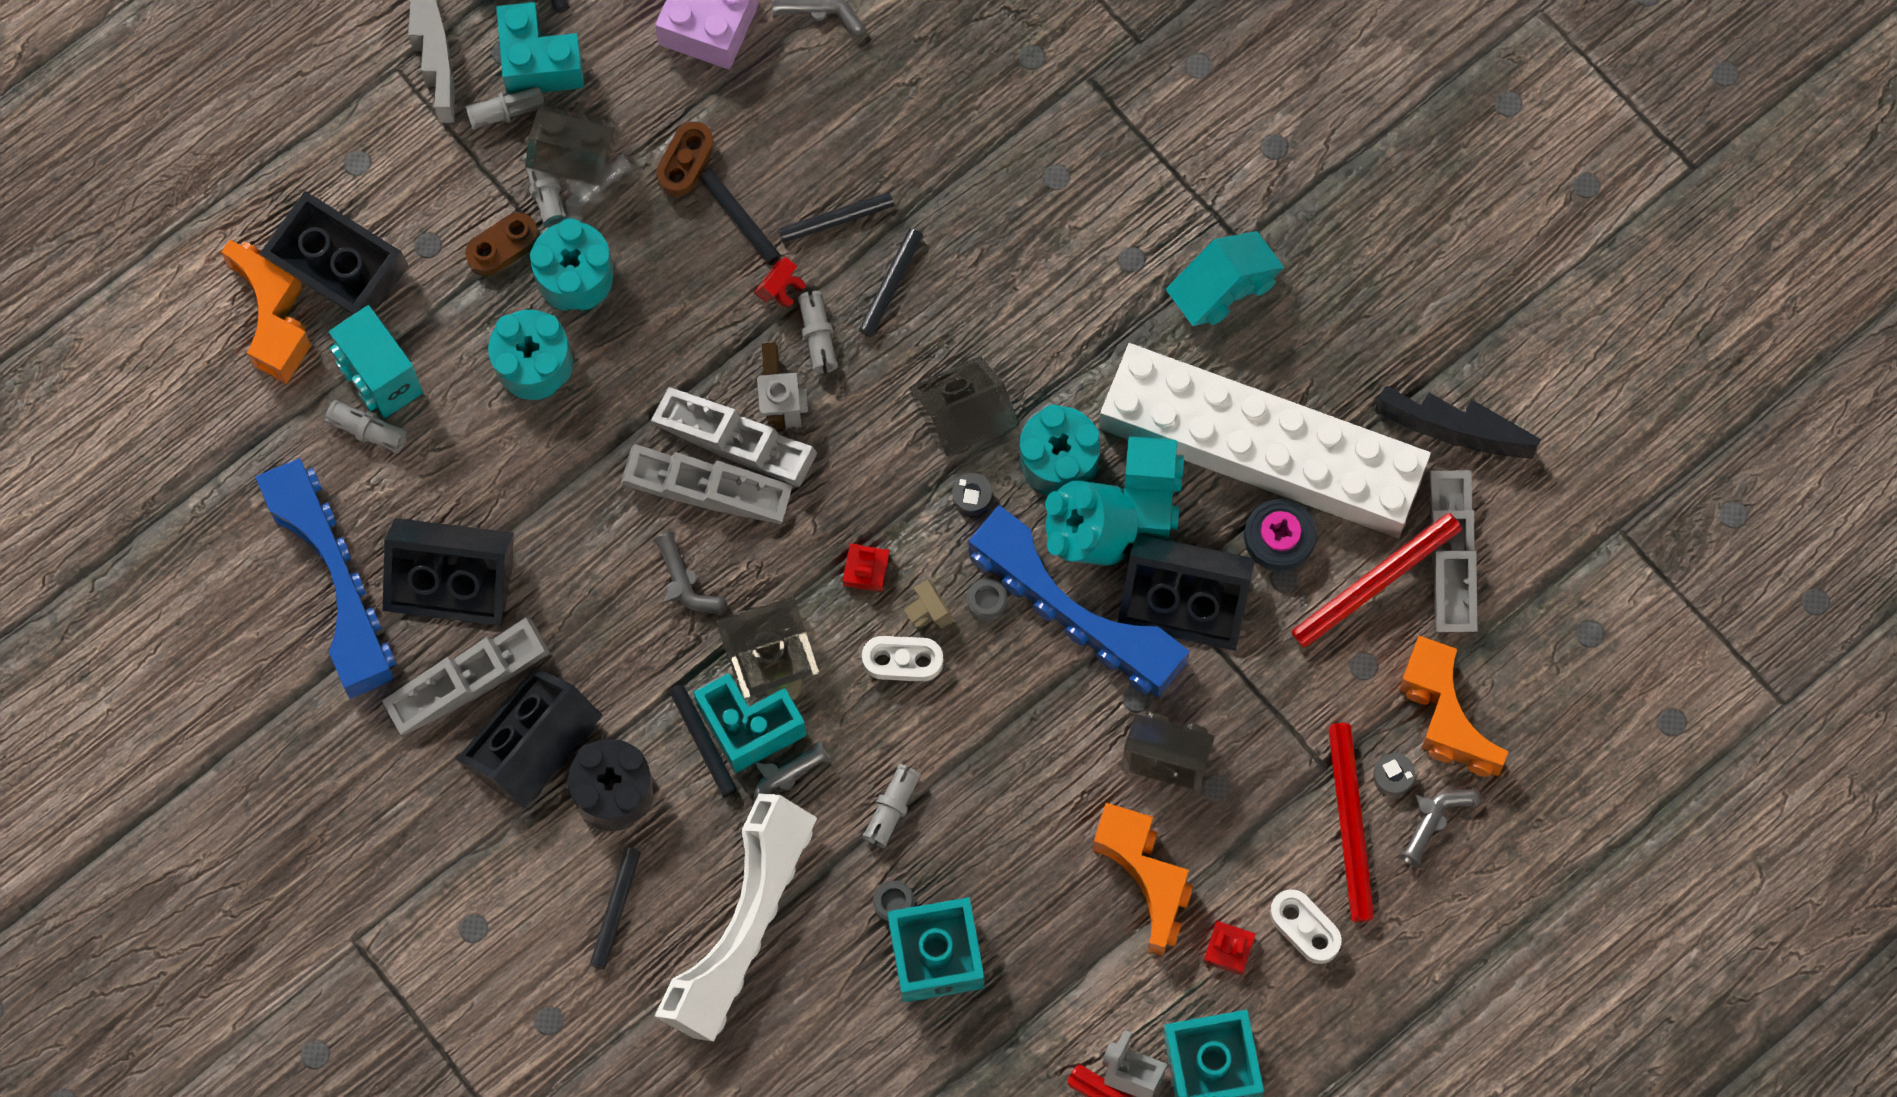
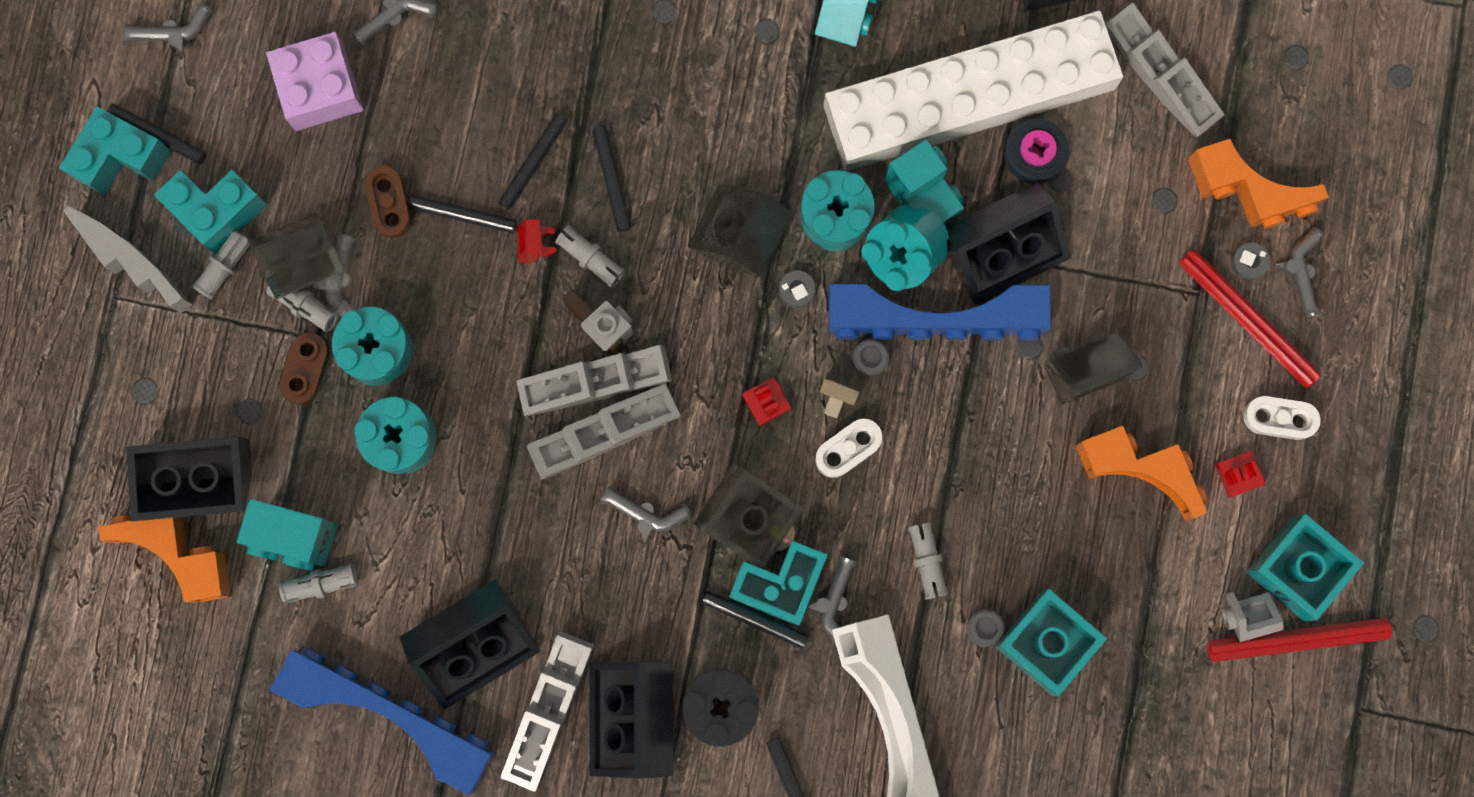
camera: 40 degrees left, 10 degrees up
(1376, 580) = (1131, 132): red axle -> none

